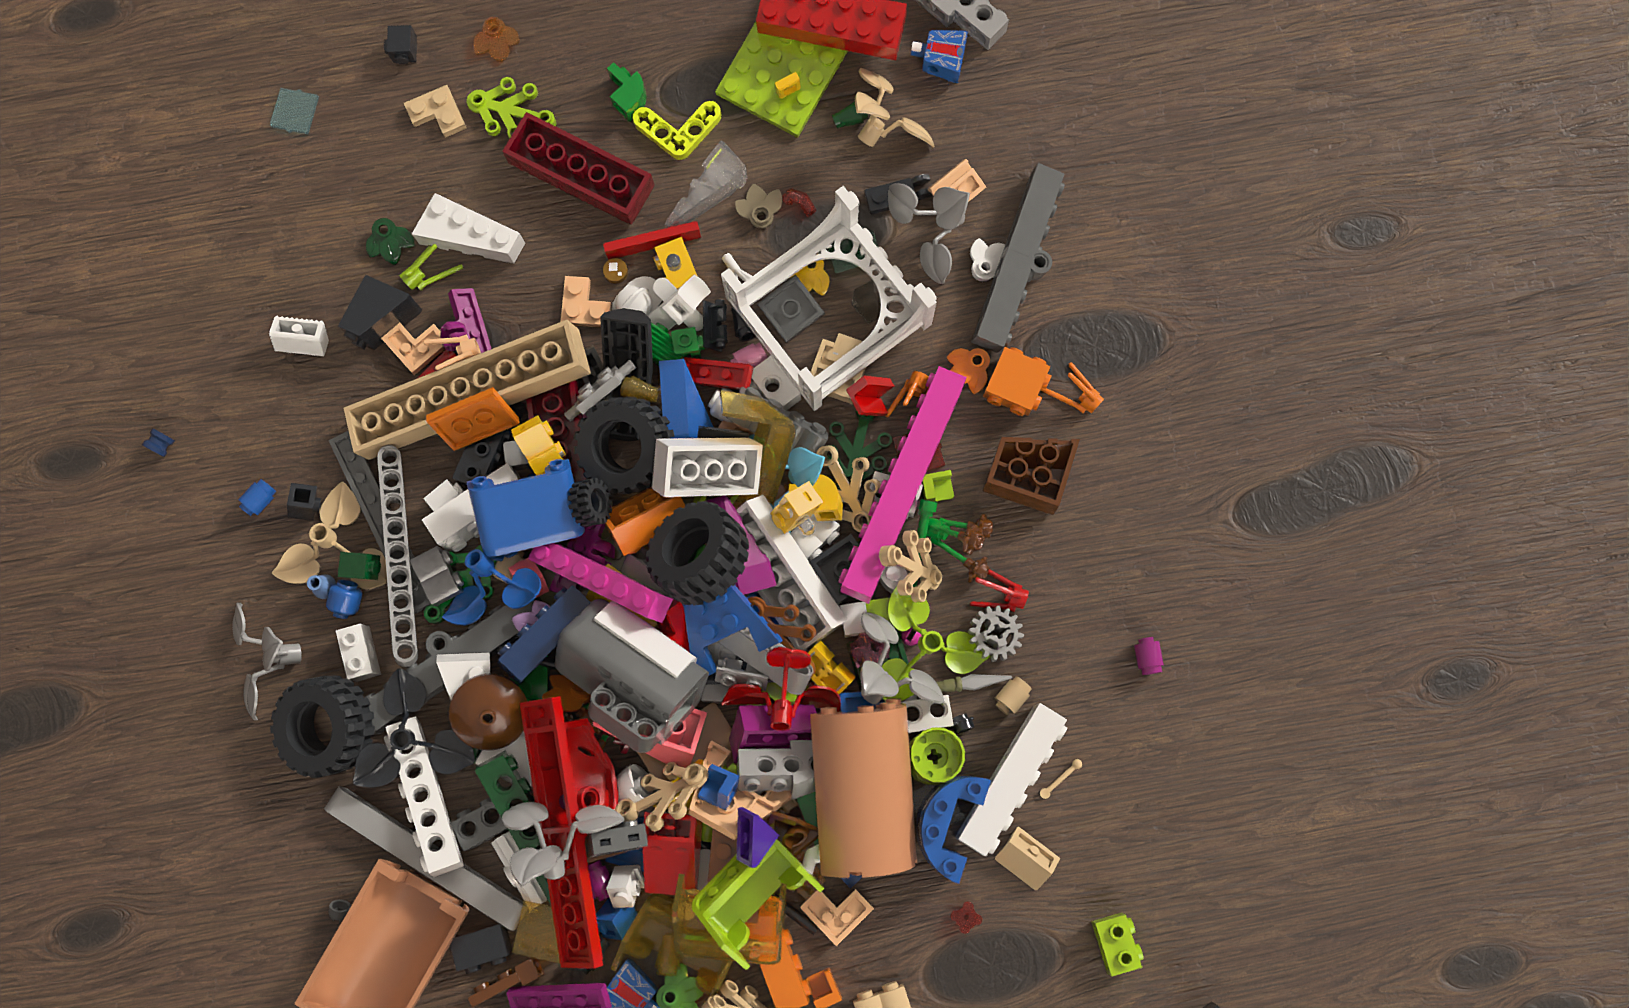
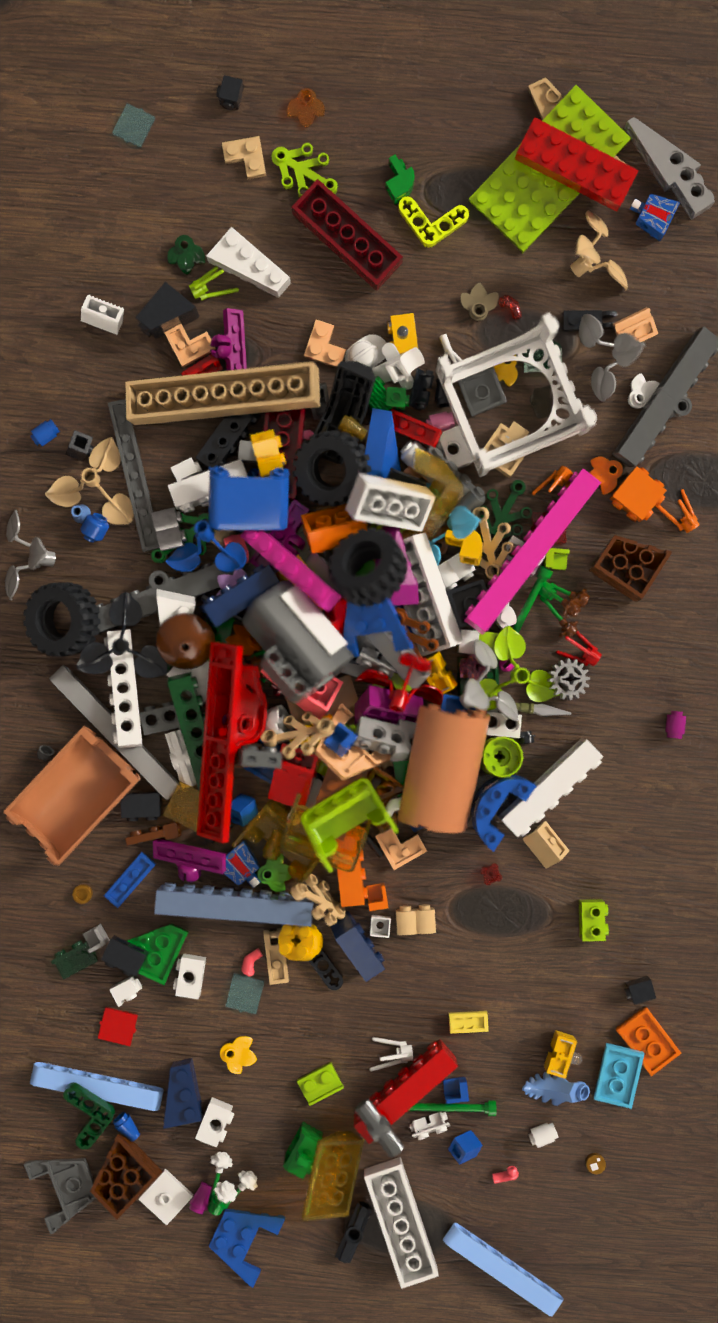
camera: 10 degrees right, 10 degrees up
(358, 652) = (97, 570): white brick -> none
(359, 565) = (112, 506): dark green brick -> none
(394, 566) = (142, 496): light grey beam -> none
(466, 349) = (229, 362): light nougat plant -> none
(472, 419) = (222, 418): orange tile -> none
(550, 860) = (207, 762): light grey plant -> none
(590, 502) = (297, 506): black tyre -> none
(591, 394) = (322, 420): light grey plate -> none
(599, 880) = (239, 782): magenta brick -> none
(615, 270) = (355, 324): pearl gold tile -> none
(625, 885) = (254, 789): white brick -> none
(649, 240) = (389, 308): red tile -> none
(720, 179) = (454, 273): clear wedge -> none
(753, 837) = (357, 782): dark purple slope -> none
(787, 85) = (527, 211): yellow tile -> none
(796, 509) = (448, 552): yellow piece -> none
(849, 116) = (567, 246): dark green cone -> none
(867, 393) = (522, 476): red panel -> none
(929, 574) = (531, 624): tan plant -> none
(1012, 696) = (568, 727): tan brick -> none
(1045, 793) = (571, 802): tan hinge -> none

